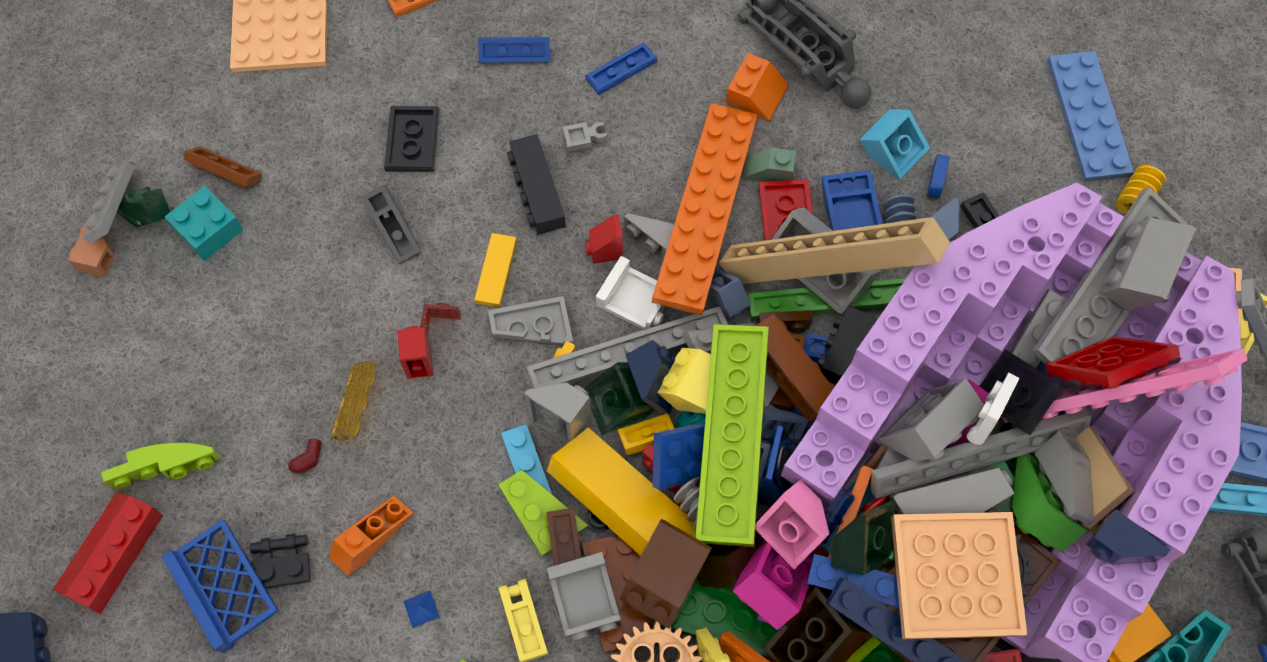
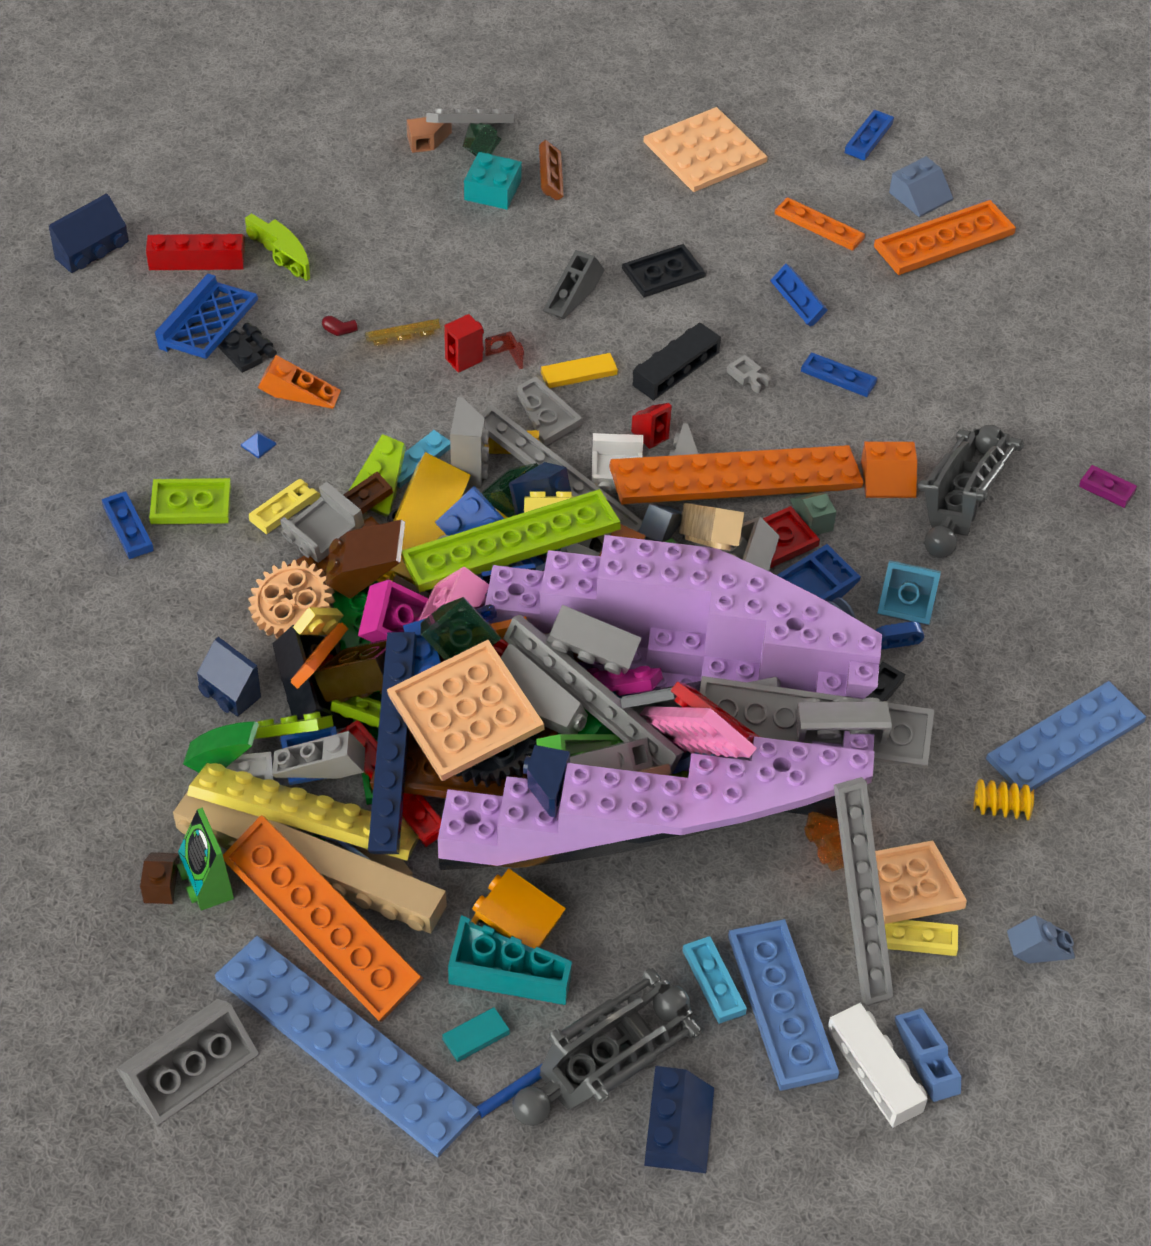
camera: 60 degrees right, 15 degrees down
(992, 409) = (626, 666): white plate -> none

